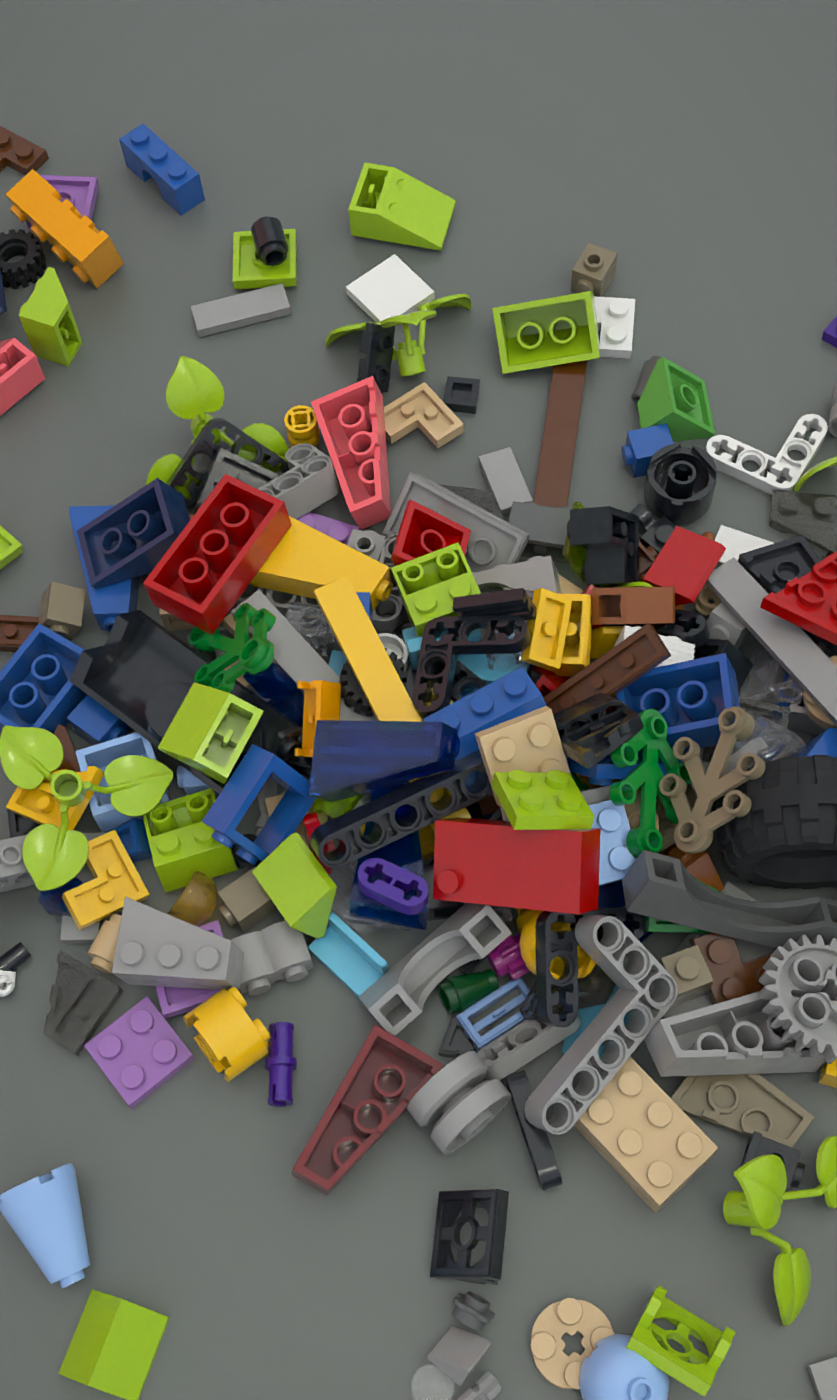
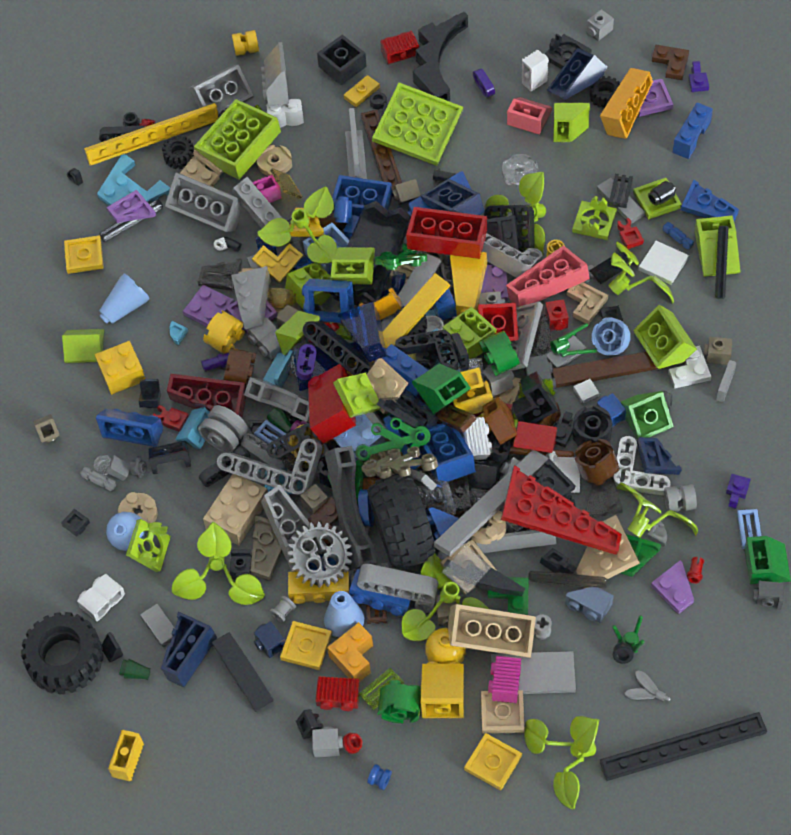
camera: 70 degrees right, 5 degrees down
(55, 546) = (442, 175): none -> black pin
(61, 720) = (342, 210): none -> blue brick
(63, 136) = (697, 80): none -> dark purple plate
(108, 444) = (517, 161): none -> clear plate
(170, 1133) = (177, 332): none -> medium azure tile
(213, 1278) = (120, 367): none -> yellow brick
(232, 295) = (623, 179): none -> black tile
(237, 342) = (593, 230): none -> lime piece
(304, 1233) = (150, 393): none -> black bracket
(313, 200) = (705, 204): none -> blue wing
(319, 317) = (630, 236): none -> red plate
(327, 1028) = (239, 365): none -> reddish brown brick
(348, 256) = (678, 235): none -> blue axle
(369, 1296) = (130, 427): none -> blue slope
(376, 1202) = (173, 418): none -> red plate
(416, 1163) = (190, 428): none -> medium azure panel
(432, 462) = (557, 315): none -> red brick
(438, 209) = (721, 264): none -> black axle
(499, 477) = (561, 344): none -> green plant
(514, 550) = (499, 353): none -> green brick
(517, 398) = (611, 336): none -> light blue cylinder
(566, 658) = (440, 386): none -> green slope
(593, 476) = (586, 391): none -> white tile
(653, 281) = (726, 381): none -> light grey tile
(730, 883) = (365, 508): none -> blue beam
(759, 419) = (655, 458): none -> dark blue wing
(767, 506) = (596, 461): none -> reddish brown brick

